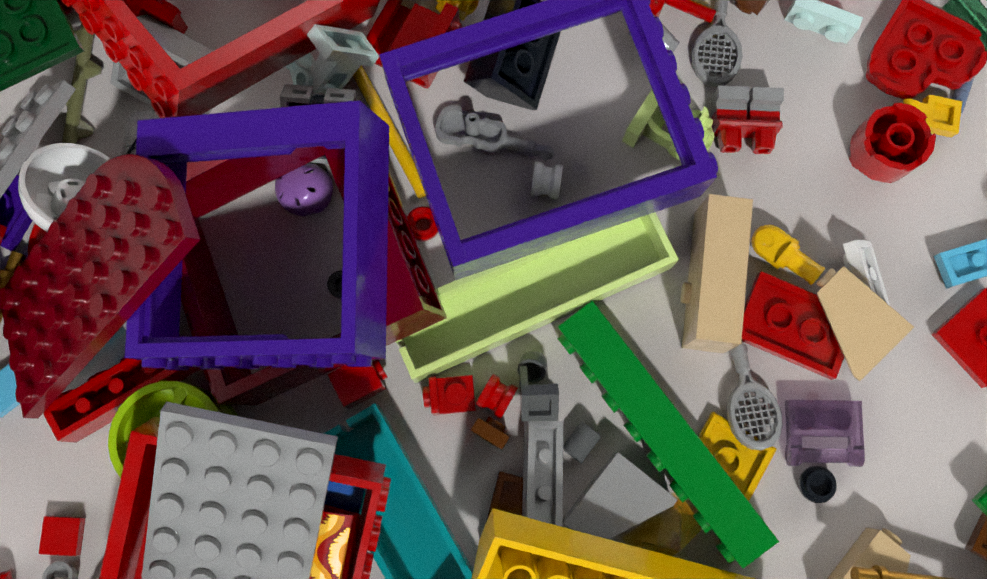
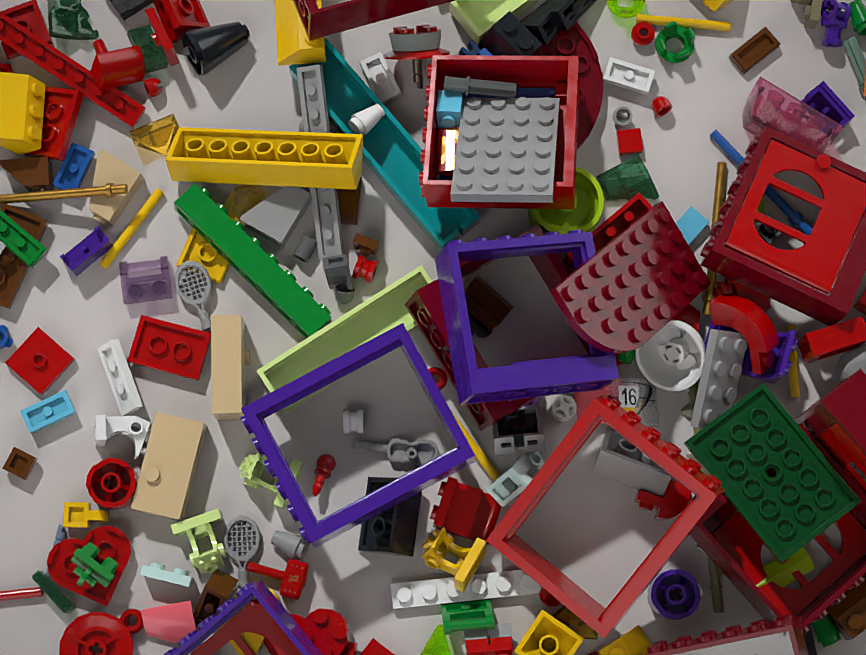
camera: 170 degrees right, 0 degrees up
(75, 471) = (627, 180): none -> clear green slope
(321, 307) = (486, 303): none -> reddish brown panel
(450, 395) = (396, 266): red bracket -> none
(592, 133) = (325, 465): none -> red bar
(746, 115) = (206, 489): red hips -> none
(775, 34) = (197, 528): none -> yellowish green tile
(783, 251) = (182, 397): yellow arm -> none
(811, 156) = (169, 466): none -> tan brick
(817, 484) = (147, 247): black plate -> none
(838, 518) = (131, 228): none -> yellow piece
(860, 320) = (131, 349): tan slope -> none
(895, 219) = (107, 427): none -> white tile
(910, 490) = (87, 251): none -> dark purple hinge
(939, 42) = (90, 570): none -> green hips

